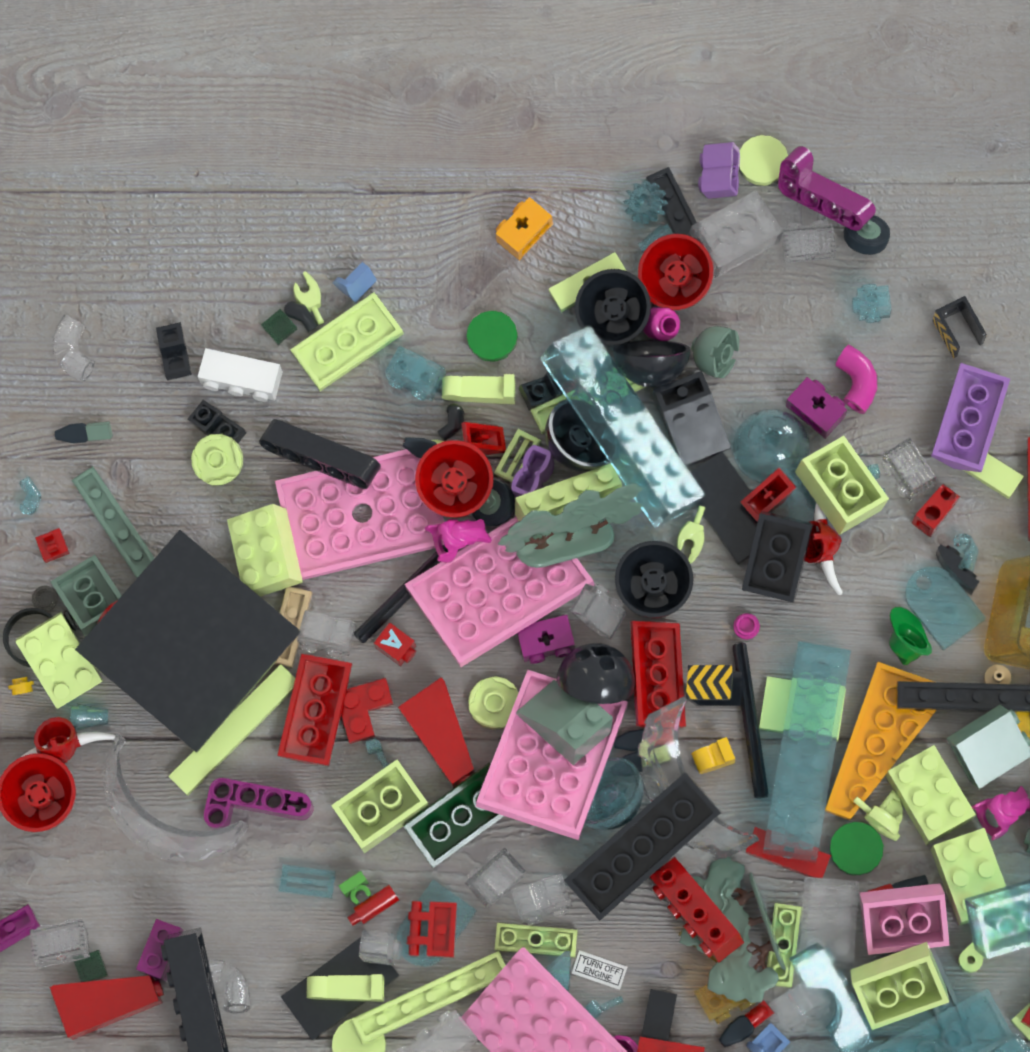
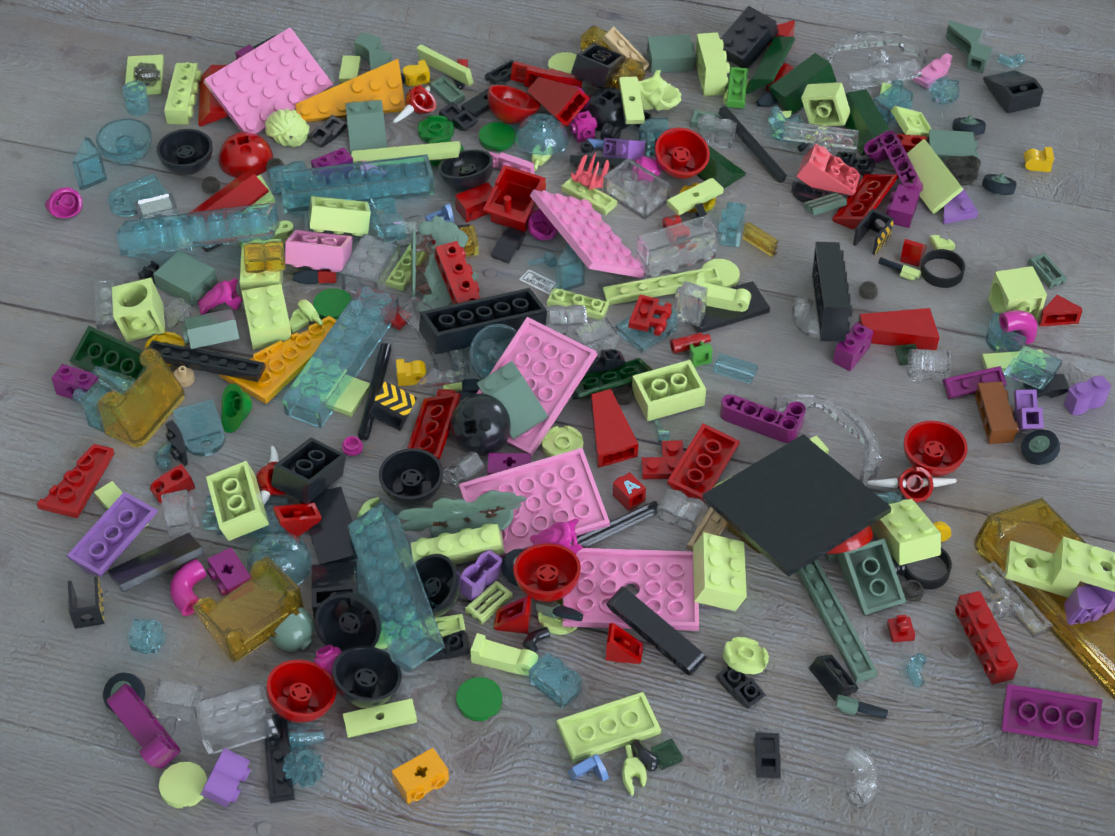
camera: 175 degrees left, 25 degrees down
(118, 465) = (832, 676): none -> black slope
(239, 375) = (711, 717): white brick -> none
(354, 433) = (622, 646): none -> red slope
(435, 792) = (623, 395): none -> clear smoke plate
(478, 841) = (608, 360): none -> black slope
(774, 356) = (251, 611): none -> clear yellow windscreen
(905, 397) = (156, 562): none -> black tile
(963, 863) = (264, 257): none -> clear yellow brick

